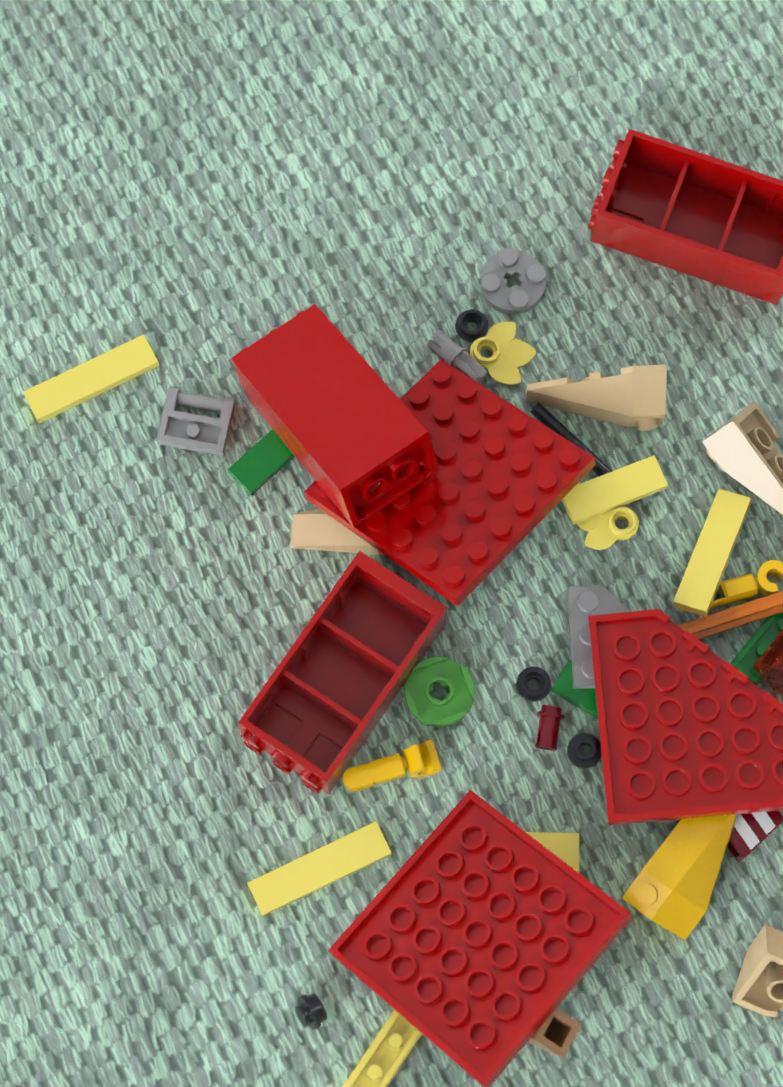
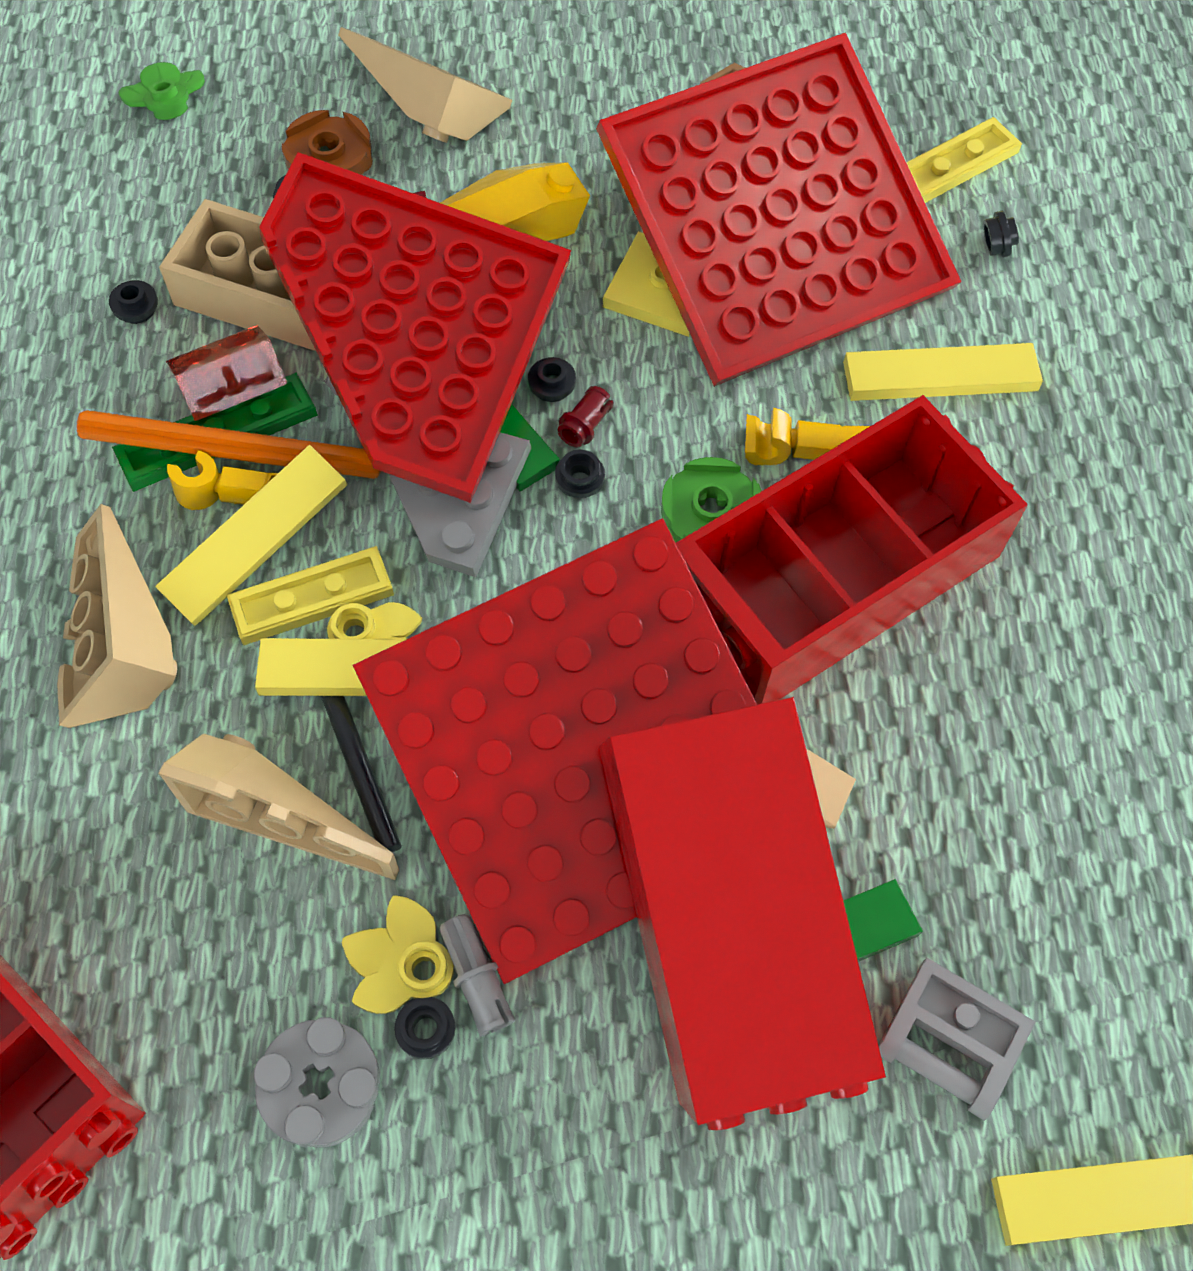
camera: 160 degrees left, 10 degrees down
(659, 537) = (309, 595): none -> light yellow tile

